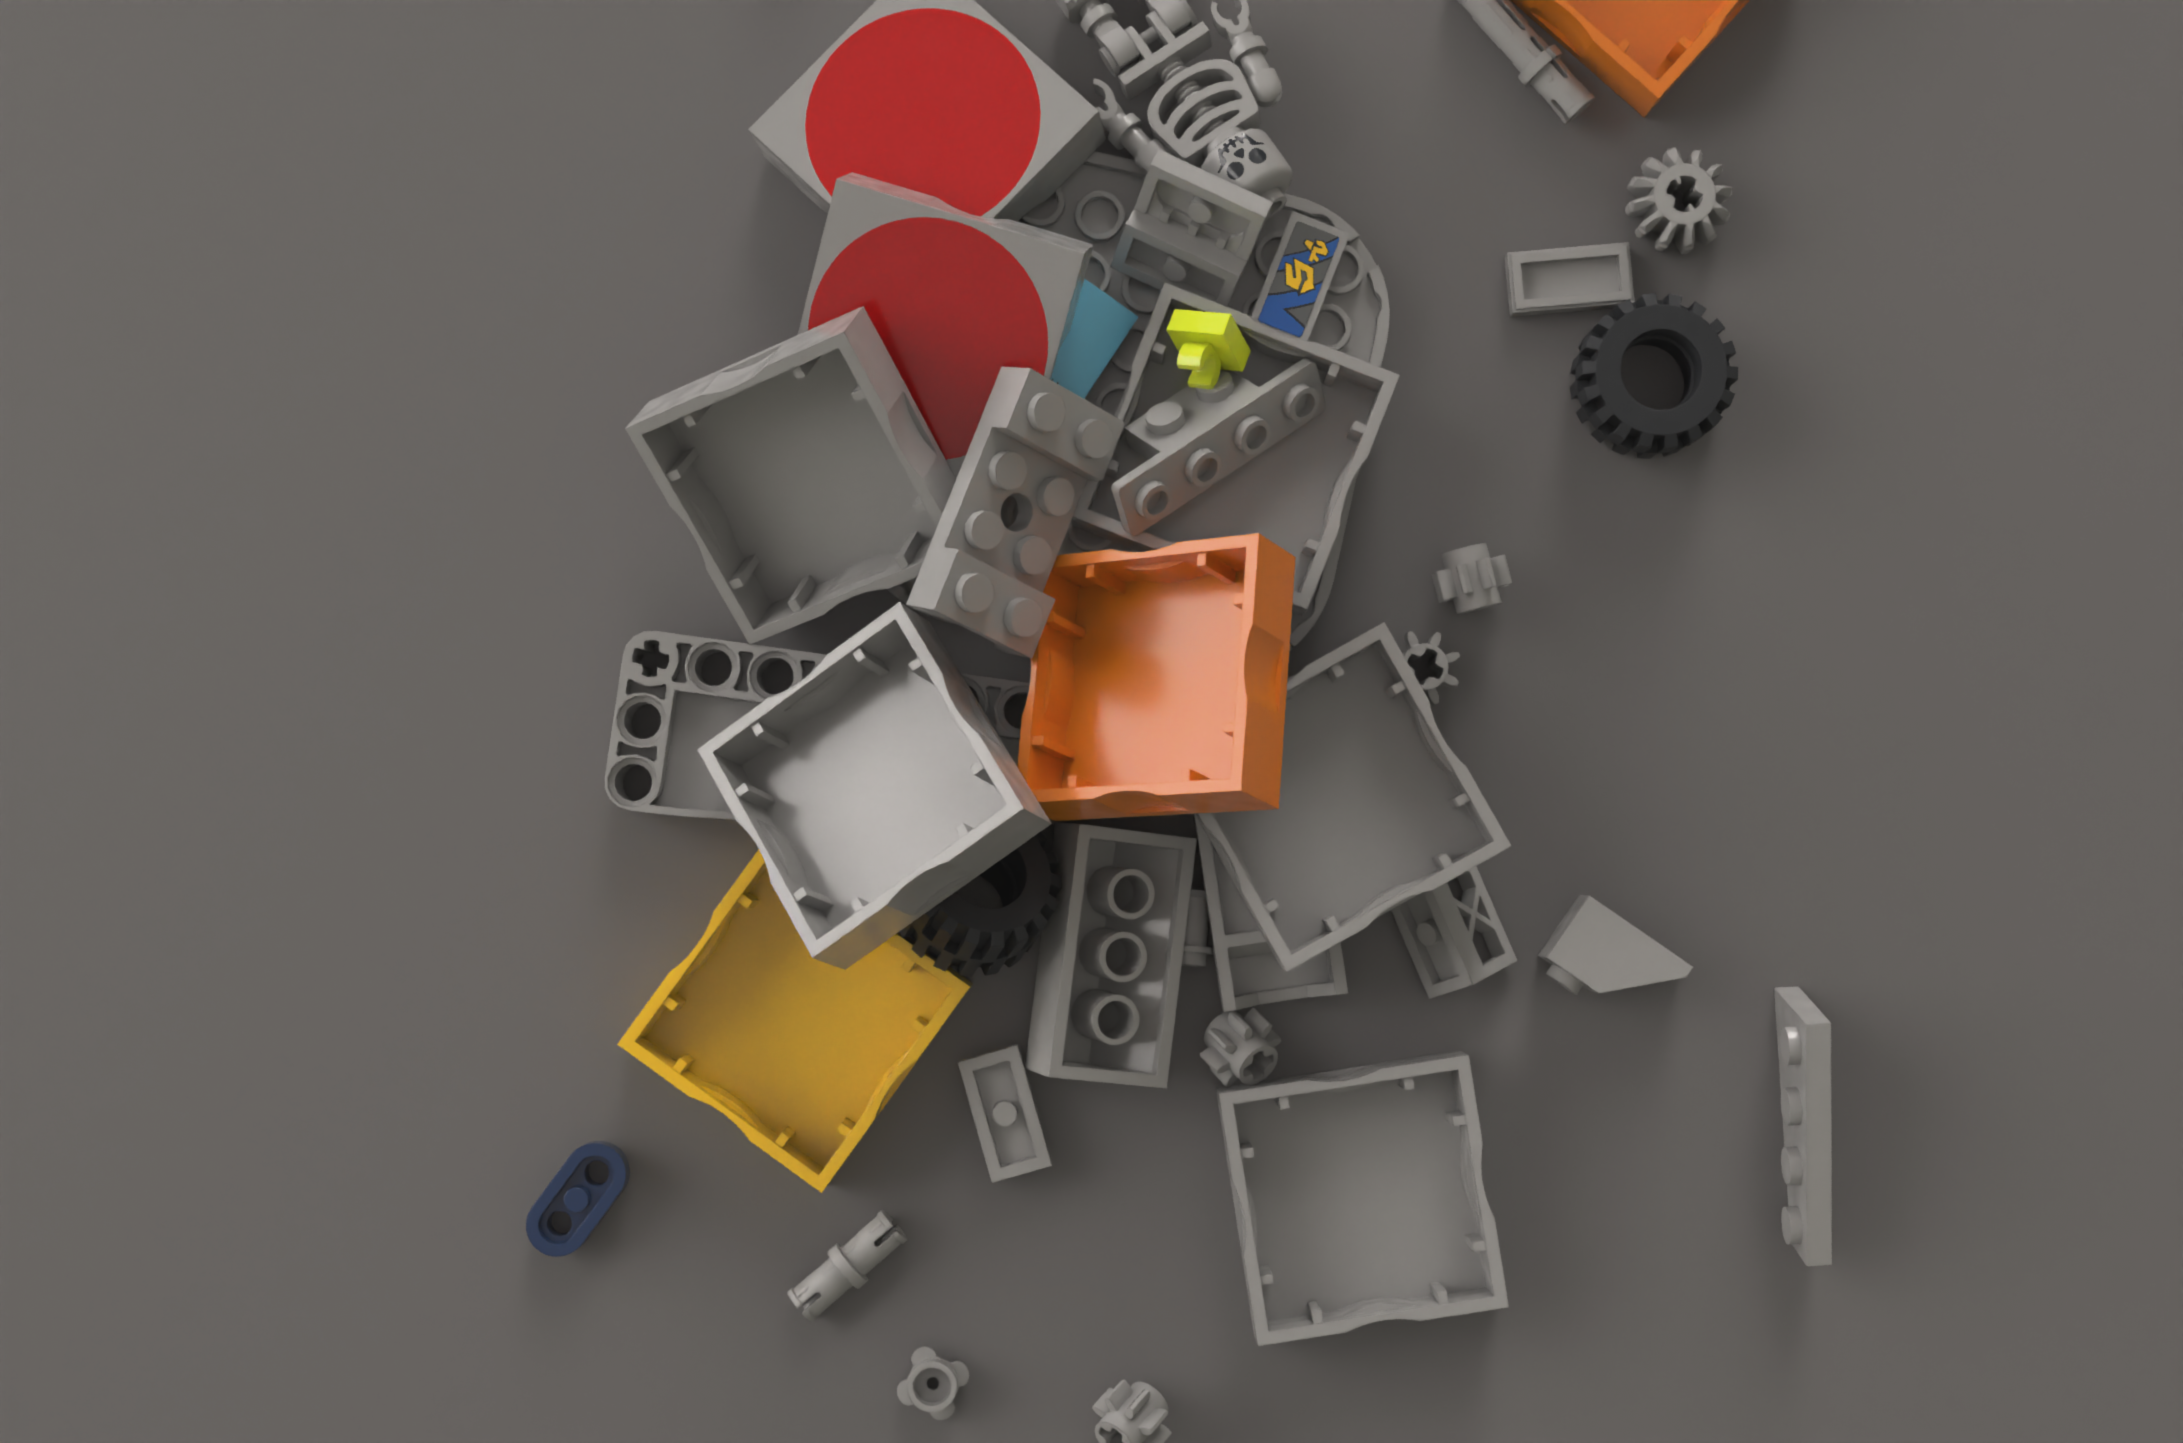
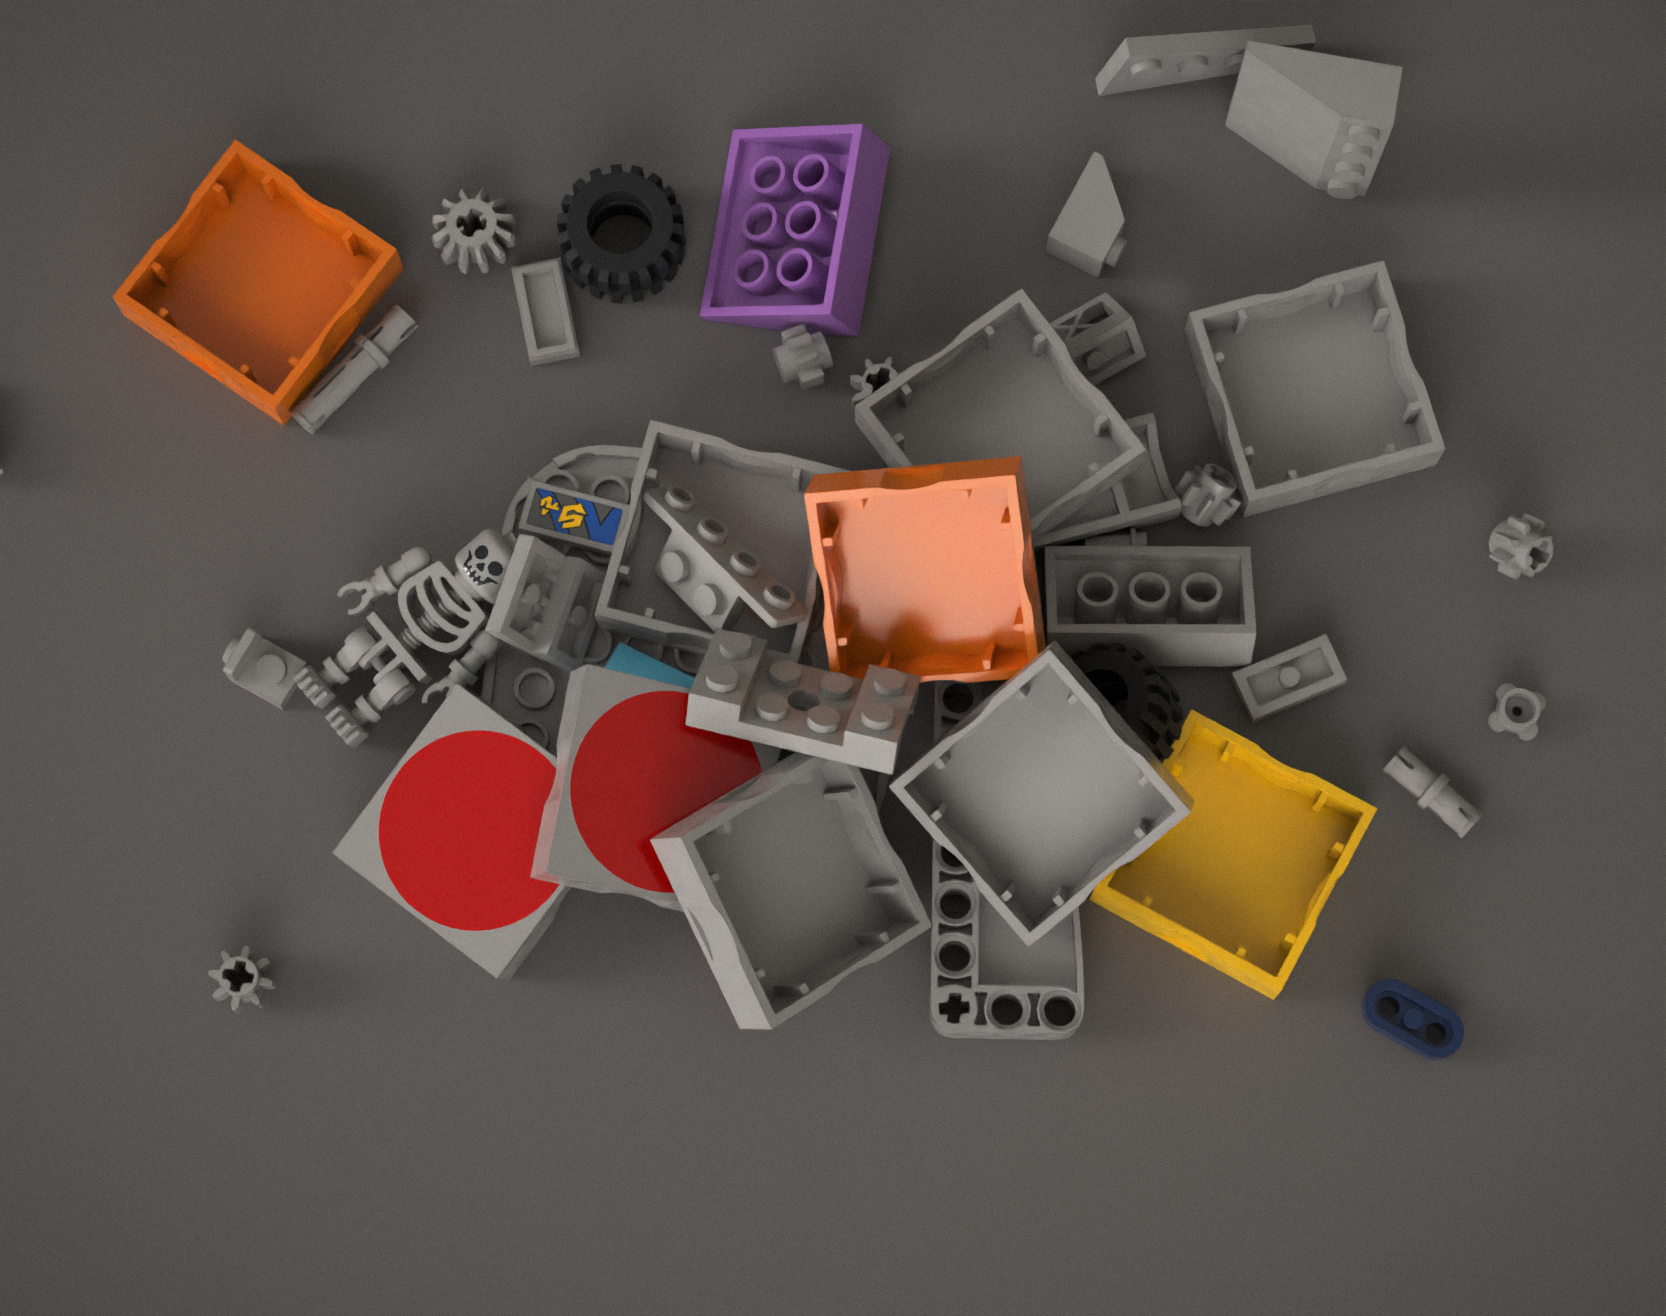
camera: 95 degrees left, 10 degrees down
(1207, 345) = (642, 574): neon yellow tile -> none
(1638, 592) = (796, 228): none -> medium lavender slope
(1700, 1253) = (1316, 113): none -> light grey slope

